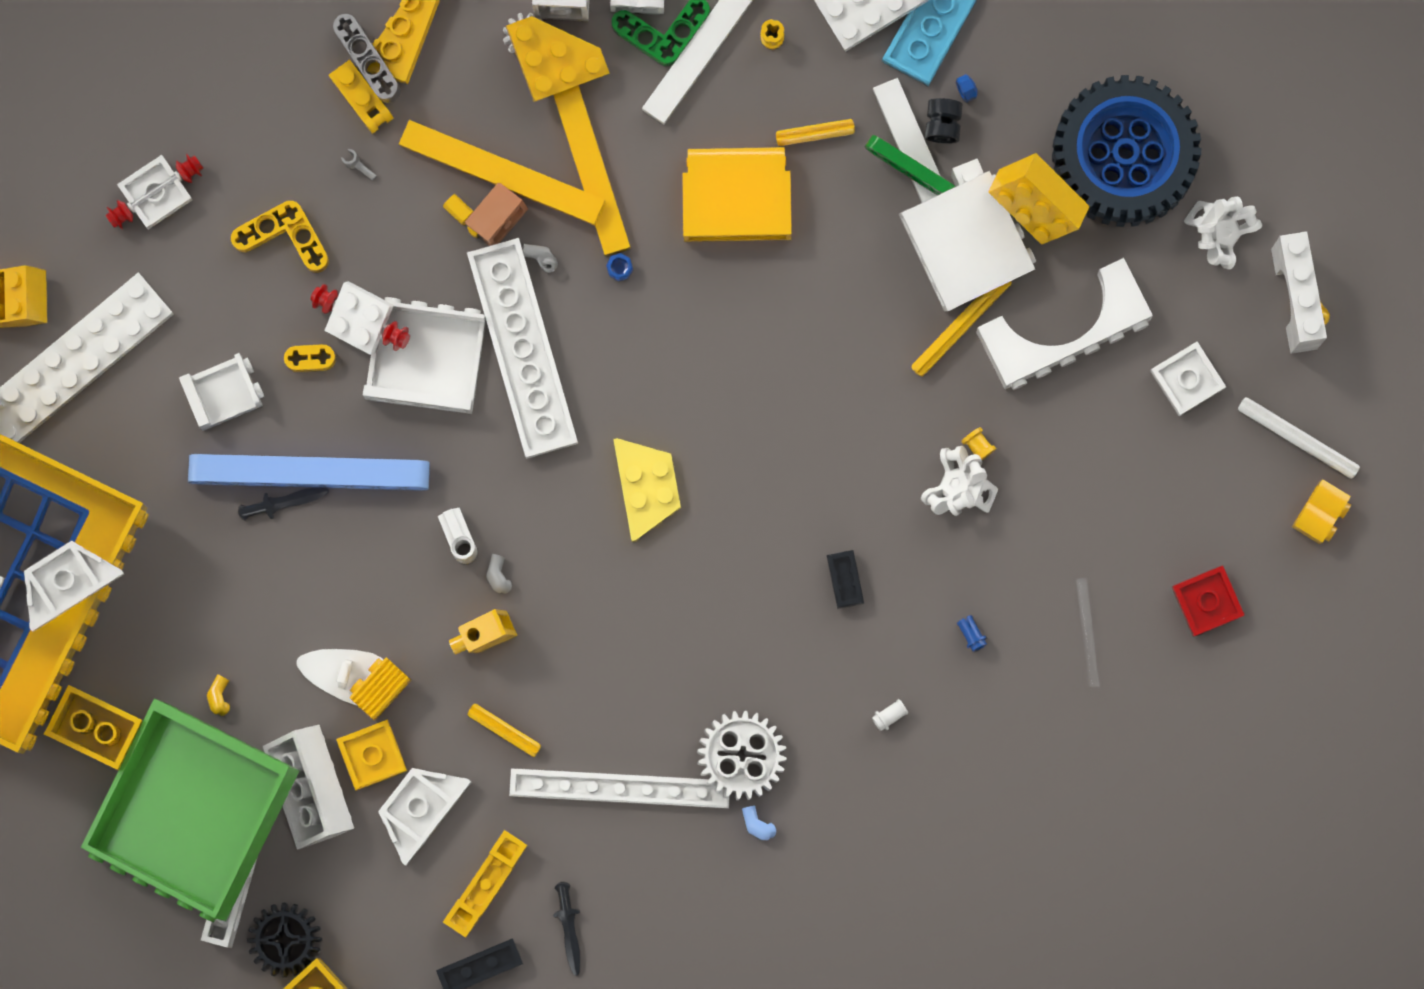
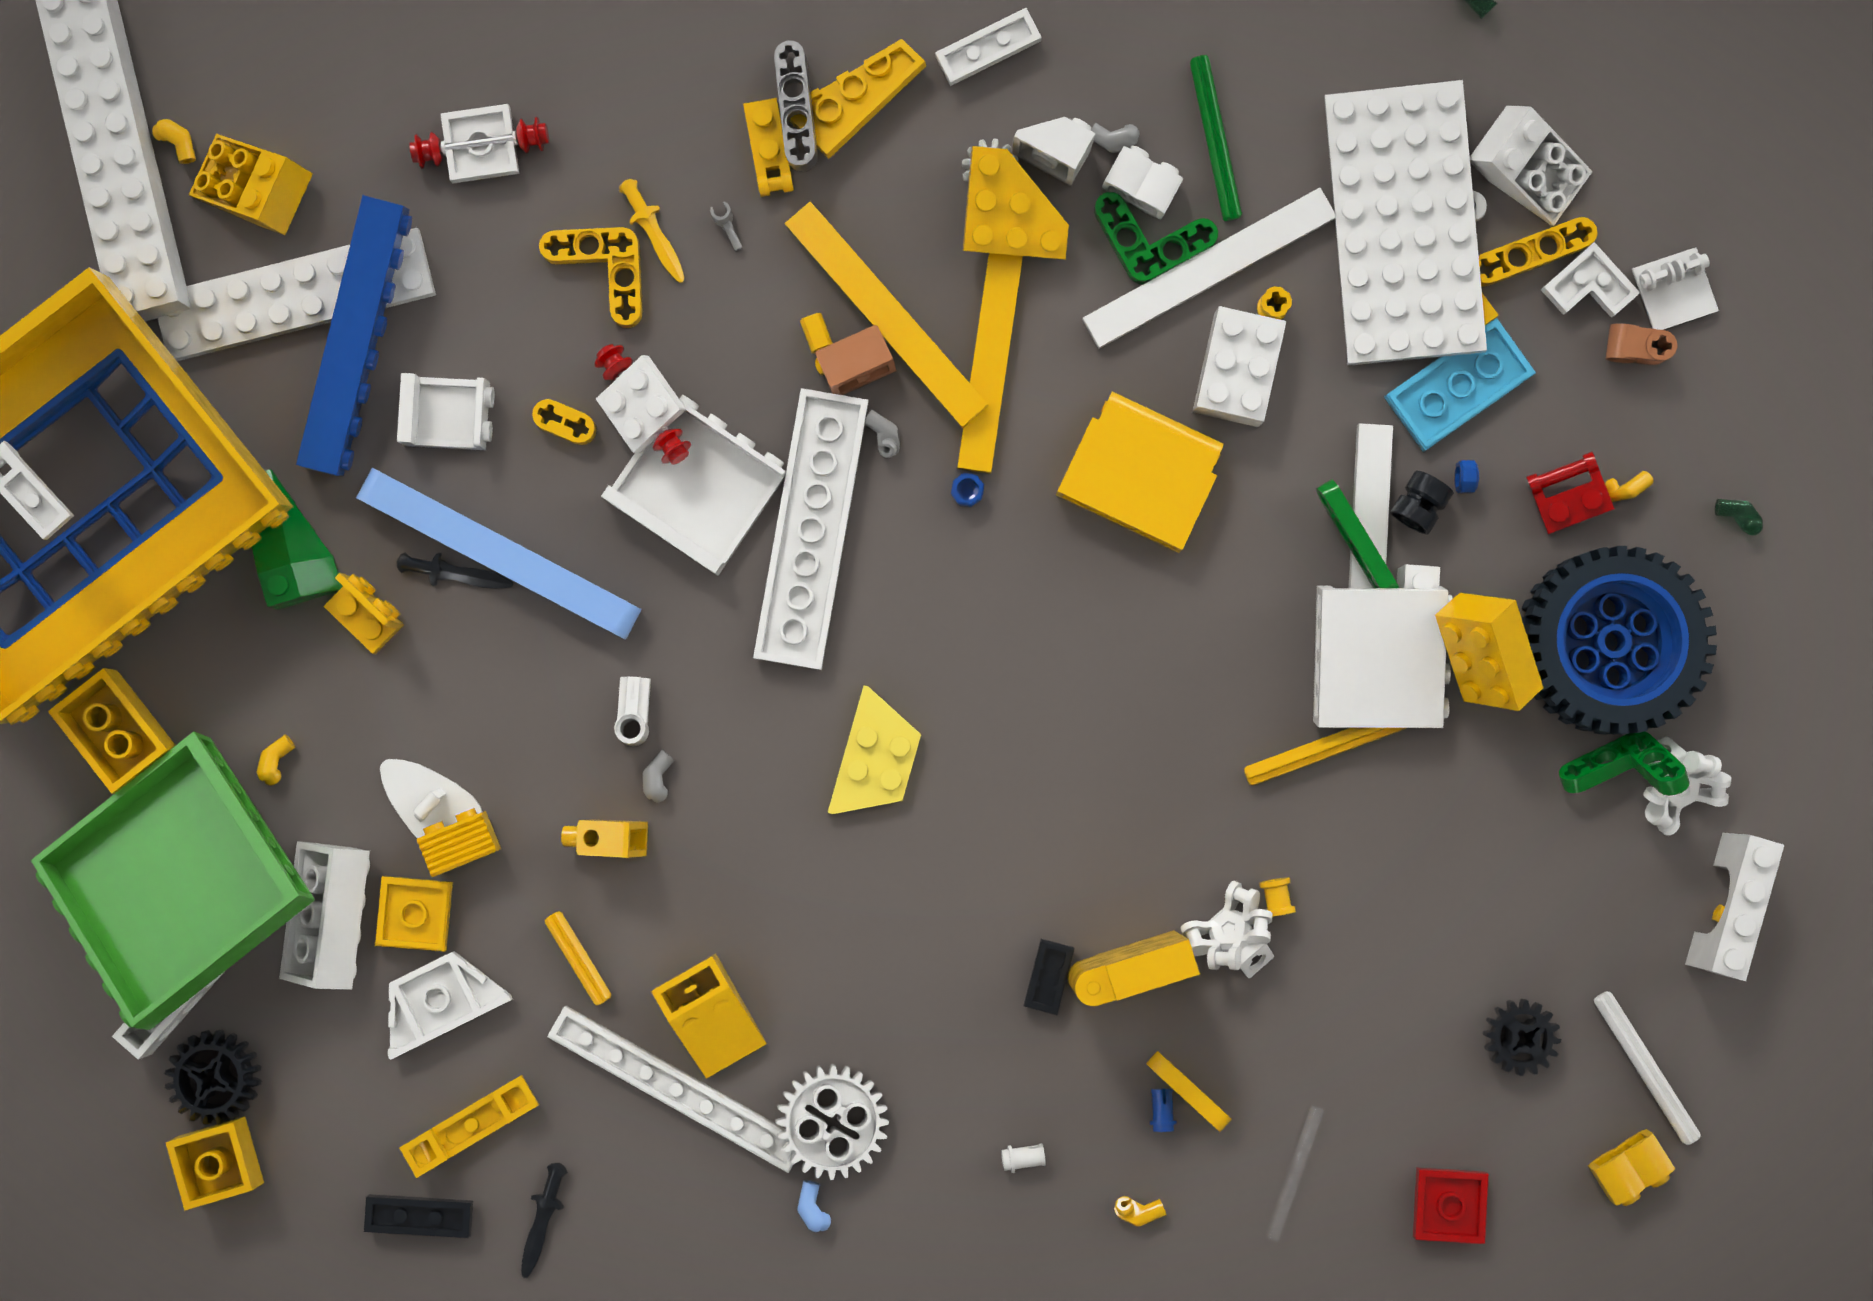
camera: 15 degrees right, 5 degrees up
(64, 581) = (140, 553): white wing -> none
(132, 368) = (354, 336): none -> blue brick
(167, 550) = (293, 560): none -> green wedge
(232, 560) = (364, 614): none -> yellow bracket
(297, 187) = (646, 218): none -> yellow sword
(618, 723) = (709, 1016): none -> yellow slope
(768, 89) = (1239, 366): none -> white brick
(815, 132) = (1267, 442): yellow axle -> none
(898, 537) = (1133, 969): none -> yellow piece
(983, 611) = (1188, 1091): none -> yellow beam
(990, 716) = (1136, 1213): none -> yellow arm
(1020, 359) = (1516, 821): white arch -> none
(1052, 69) = (1576, 503): none -> red plate
(1086, 41) = (1631, 488): none -> yellow arm
(1173, 20) = (1742, 512): none -> clear green arm
(1179, 220) = (1626, 754): none -> green beam
(1188, 378) = (1554, 938): white plate -> none
(1188, 454) = (1511, 1047): none -> black gear

